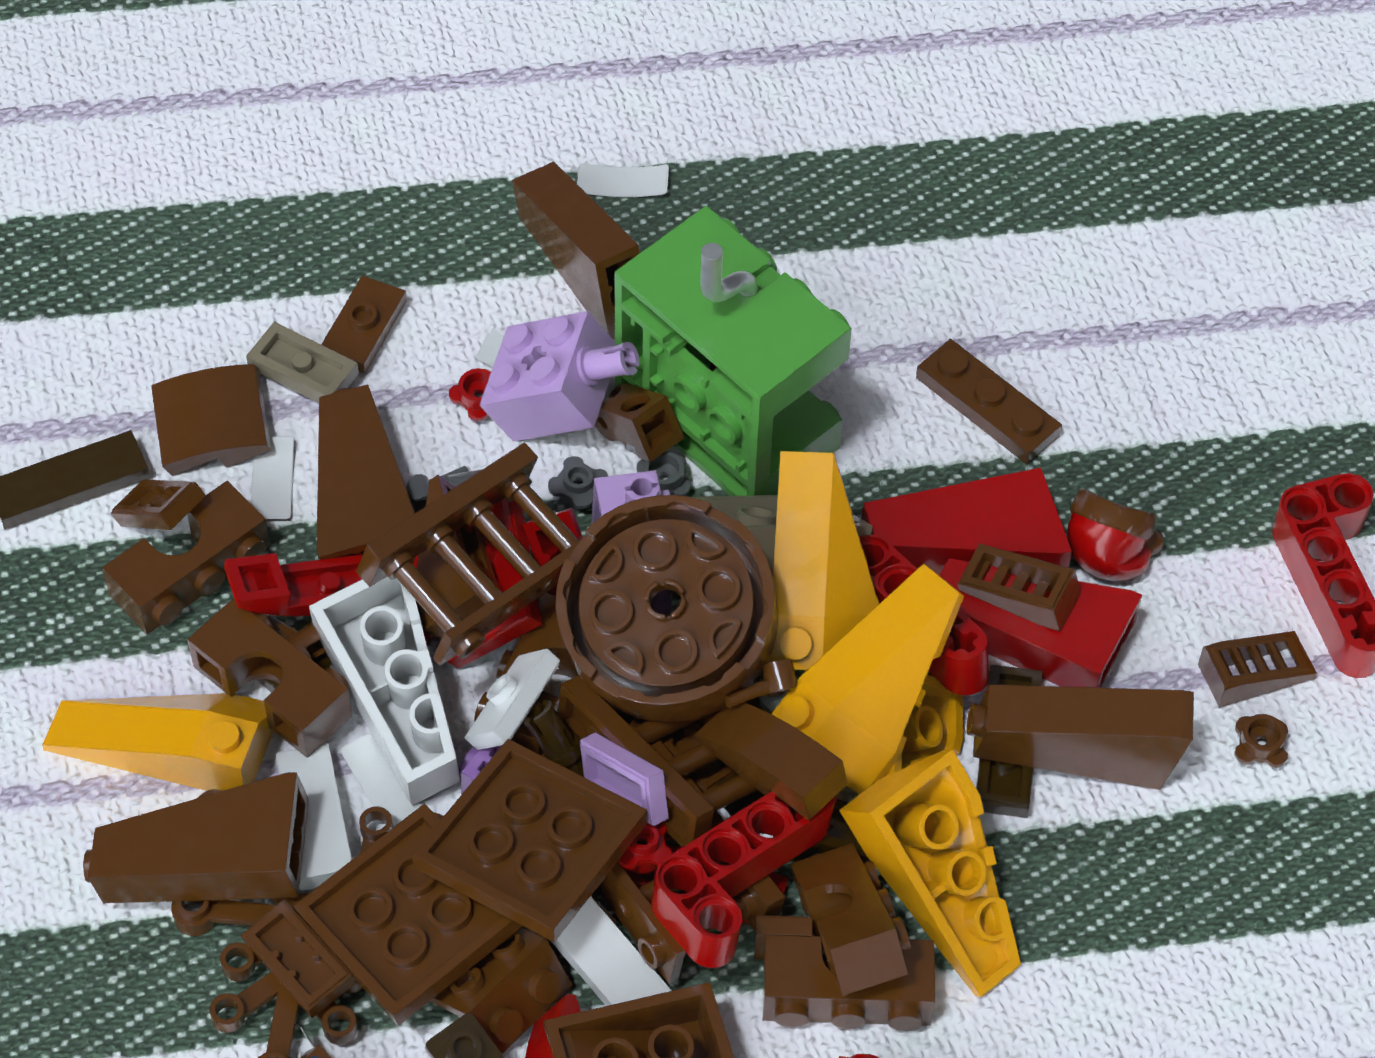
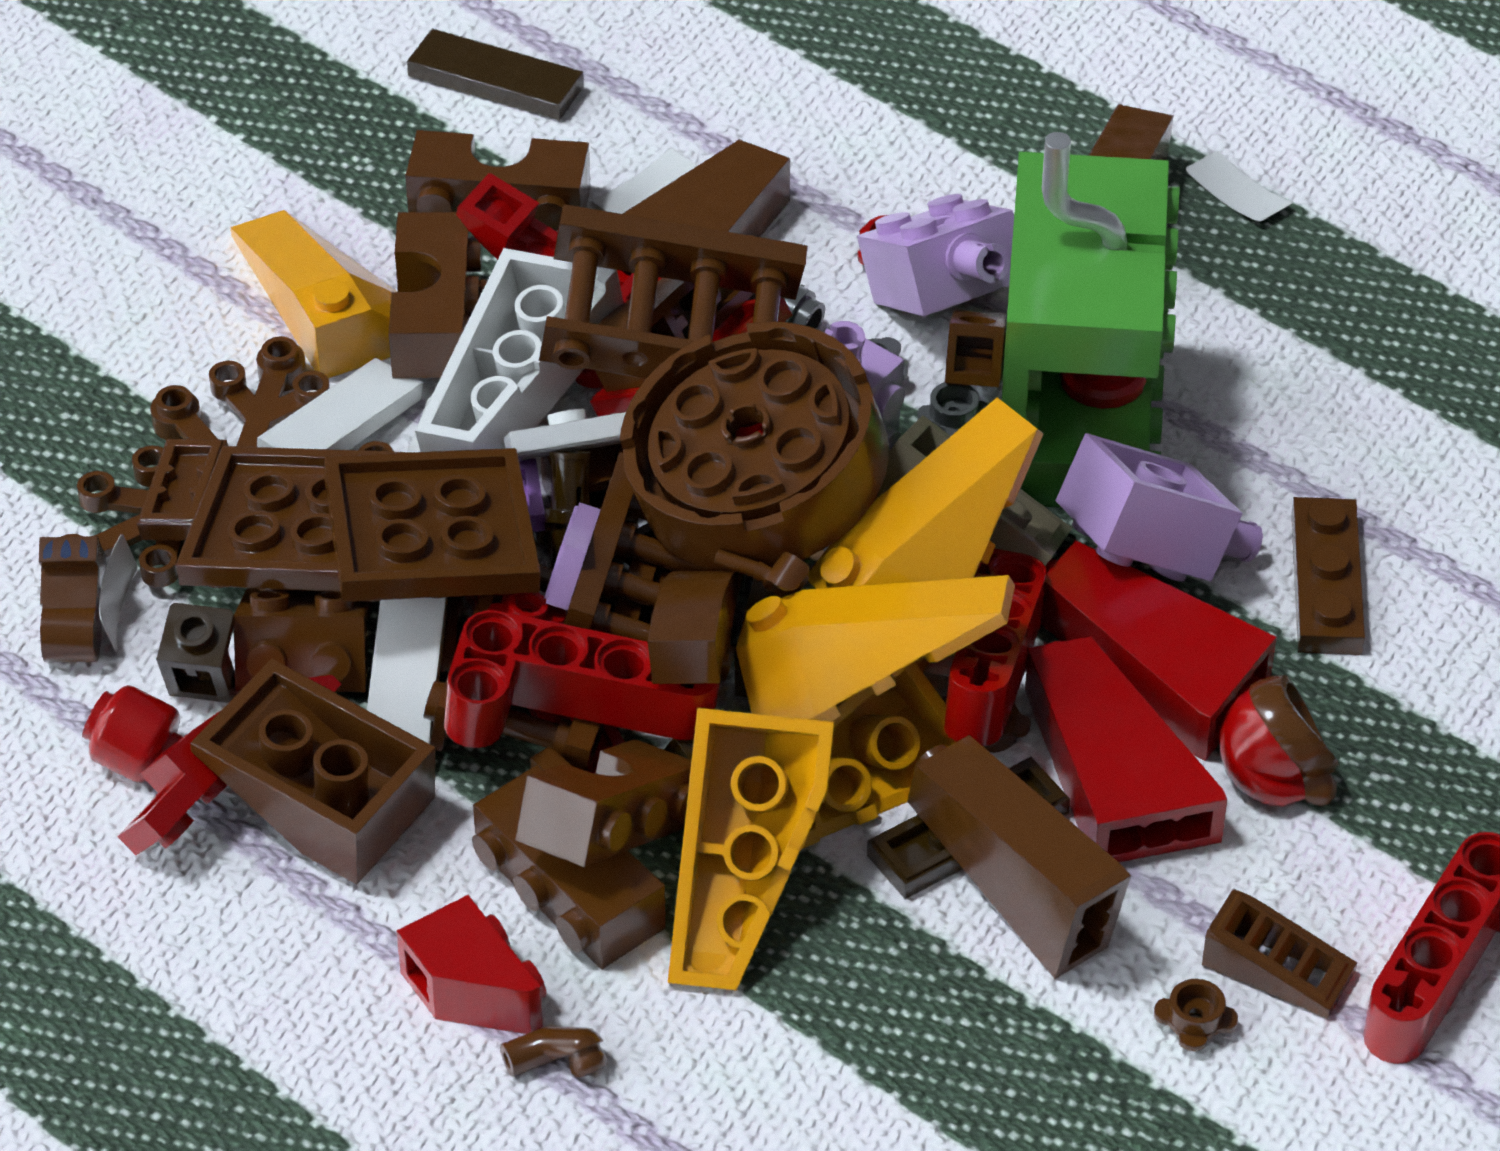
camera: 50 degrees right, 10 degrees down
(157, 504) = (520, 127): reddish brown plate -> none
(206, 848) = (222, 360): reddish brown slope -> none
(210, 417) = (654, 107): reddish brown slope -> none
(301, 363) = (775, 117): dark tan plate -> none
(365, 321) = (867, 133): reddish brown plate -> none
(888, 444) = (1153, 511): none -> lavender brick
(1035, 607) = (1119, 706): reddish brown slope -> none

